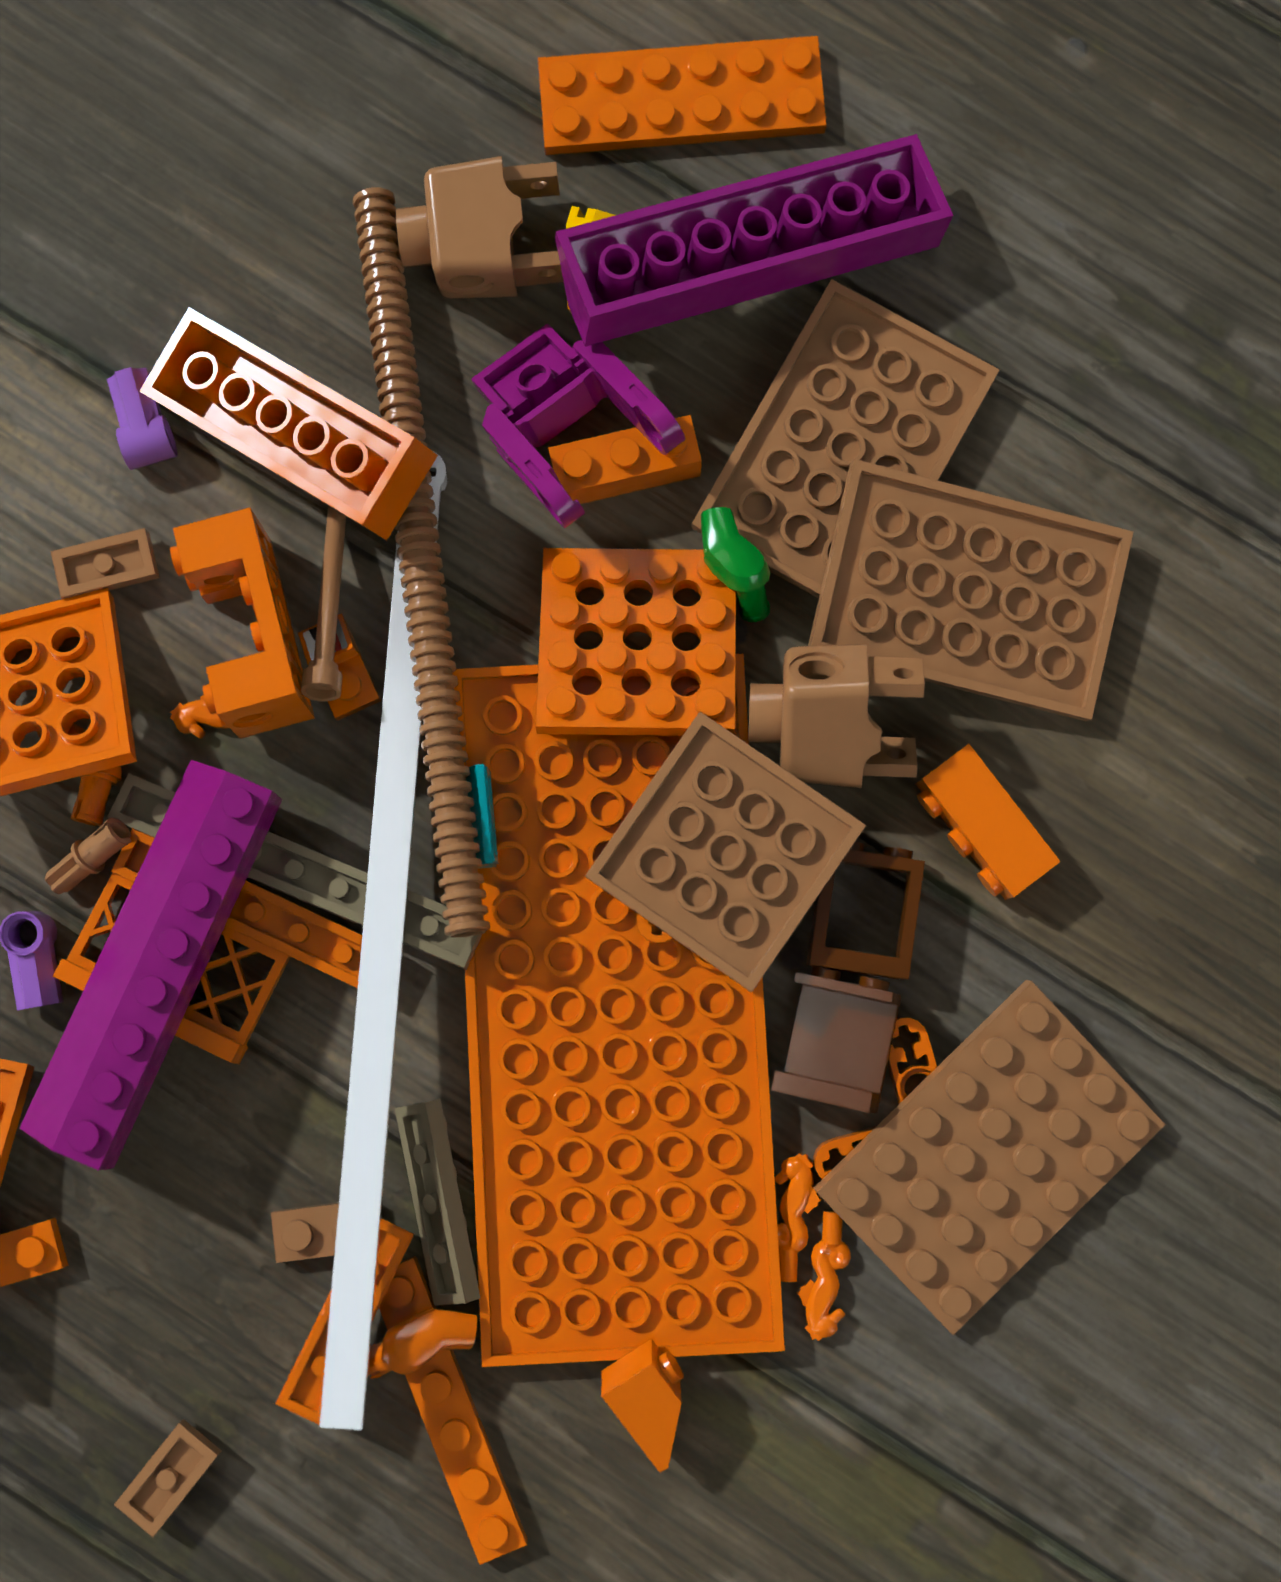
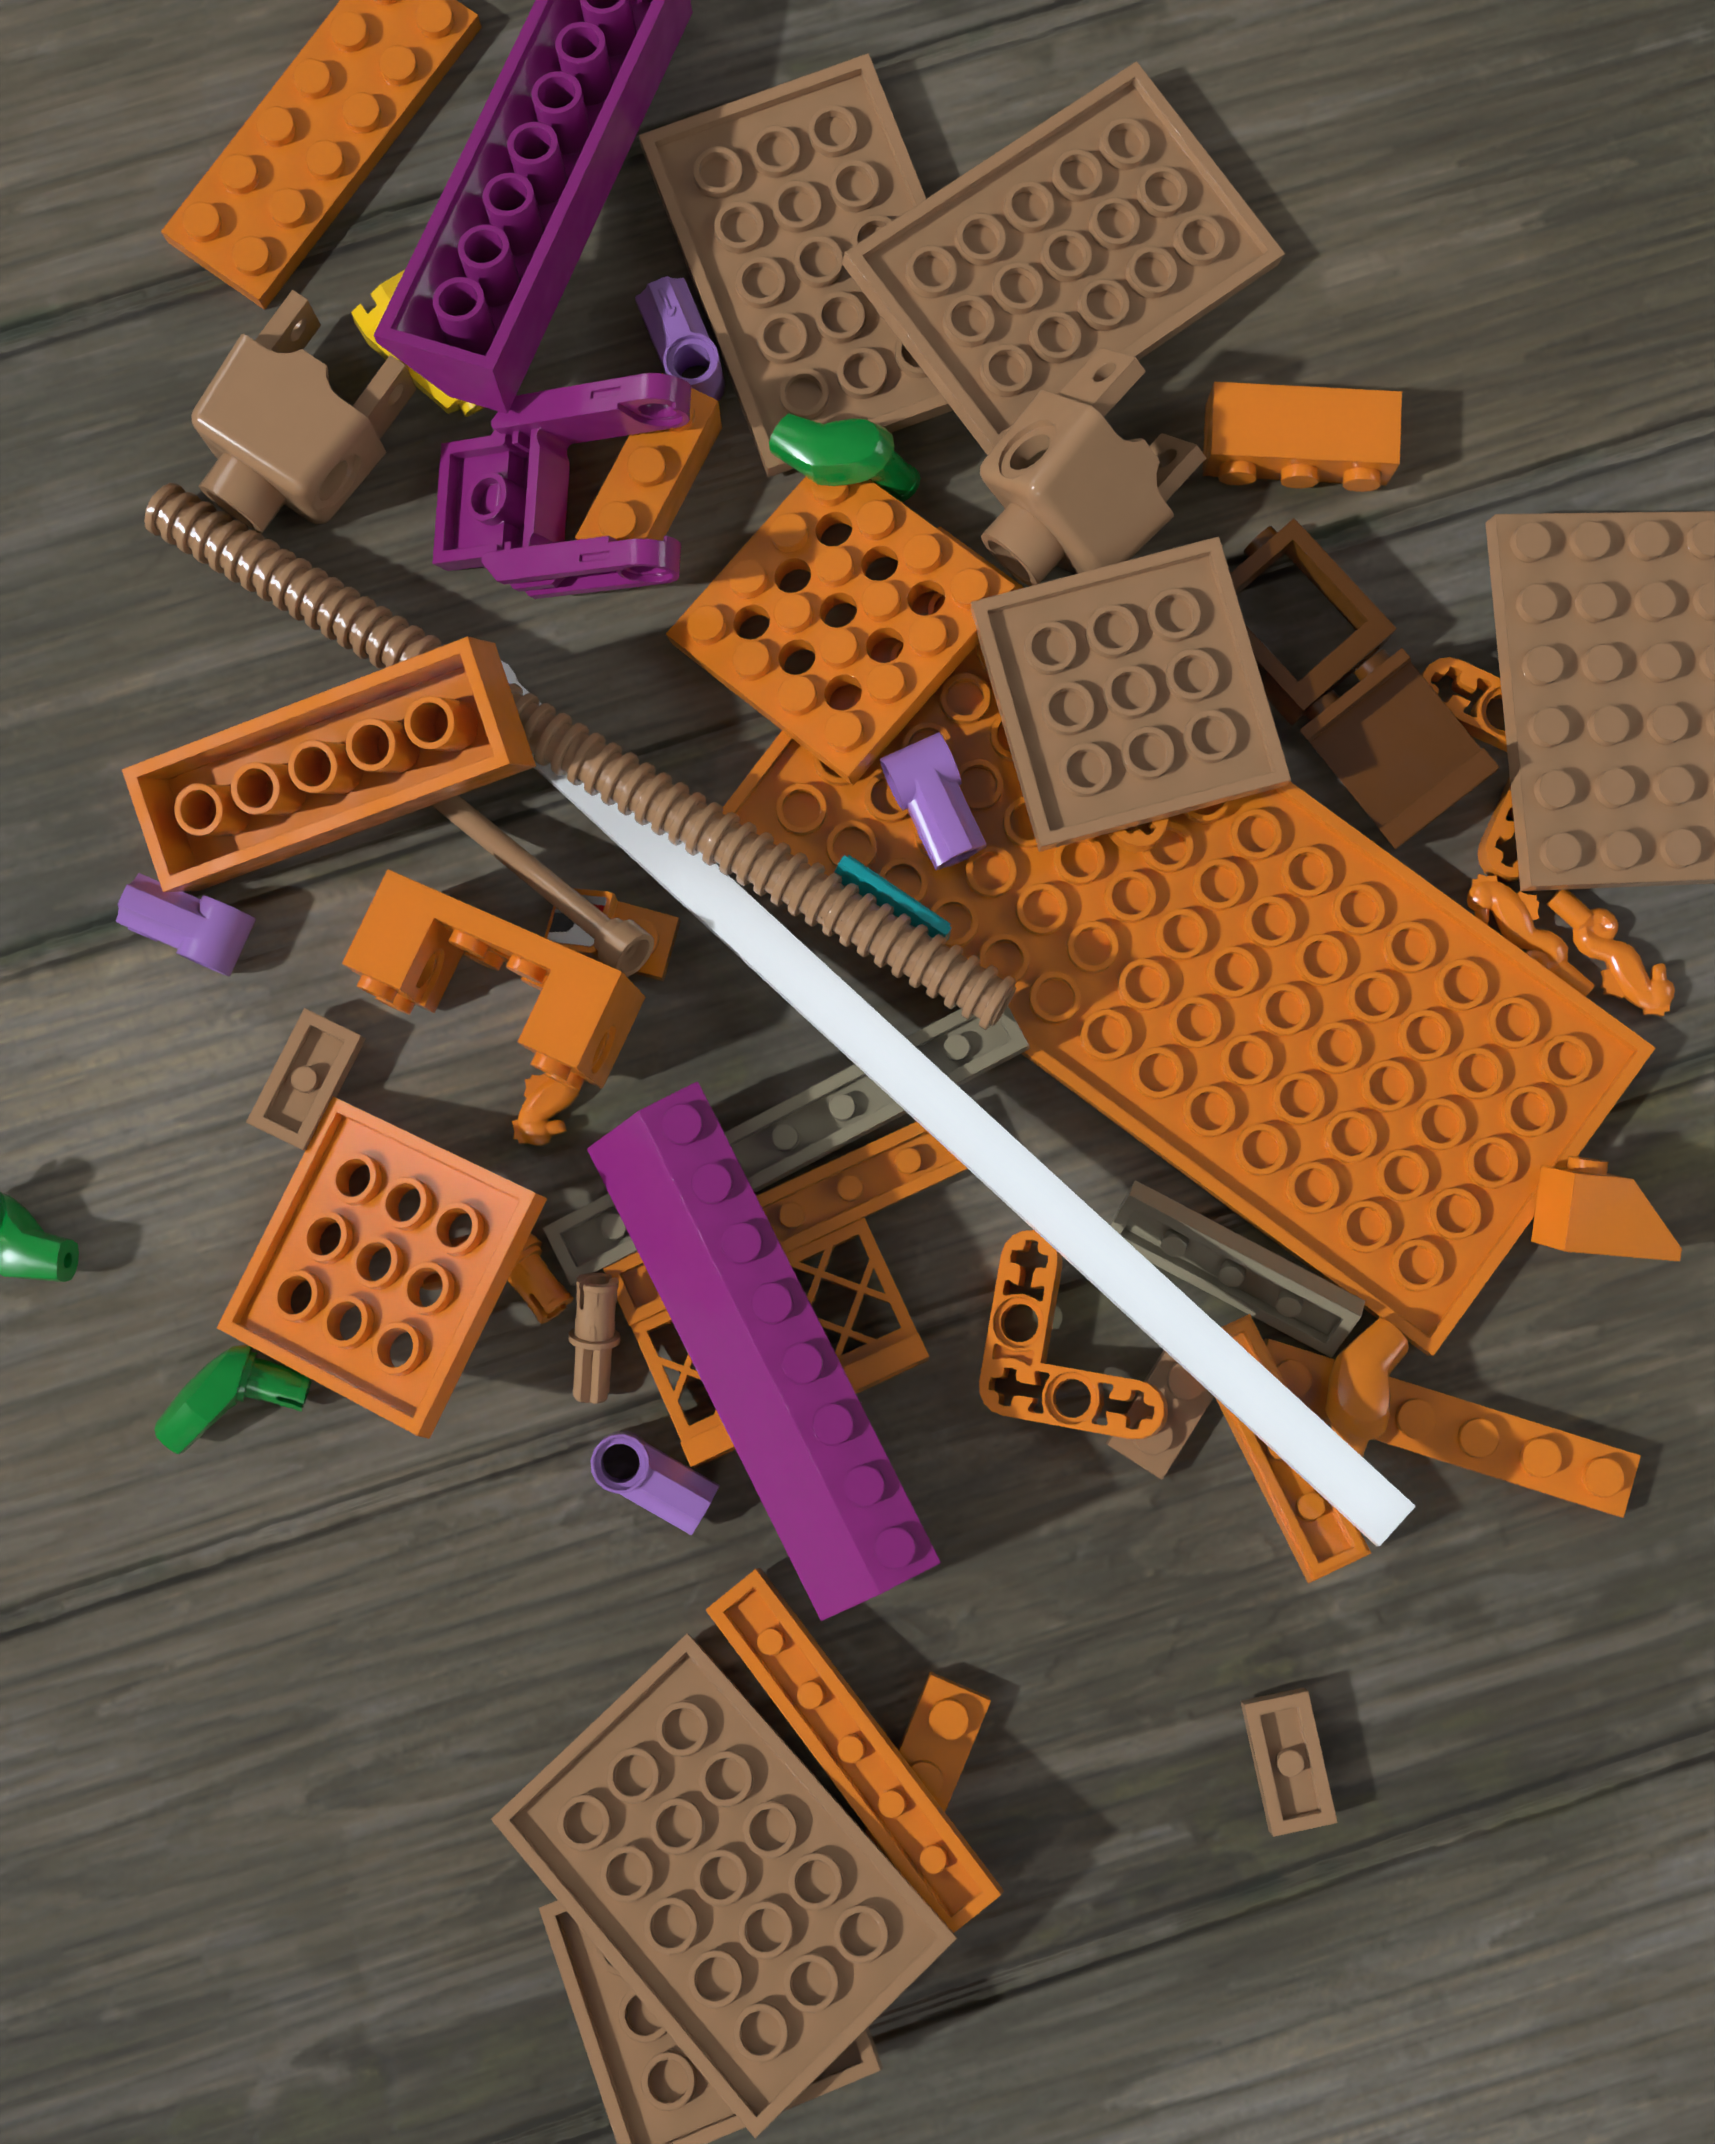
camera: 55 degrees left, 0 degrees up
(282, 1126) = (1030, 1356): none -> orange beam
(572, 778) = (927, 785): none -> medium lavender piece
(728, 408) = (680, 334): none -> medium lavender piece

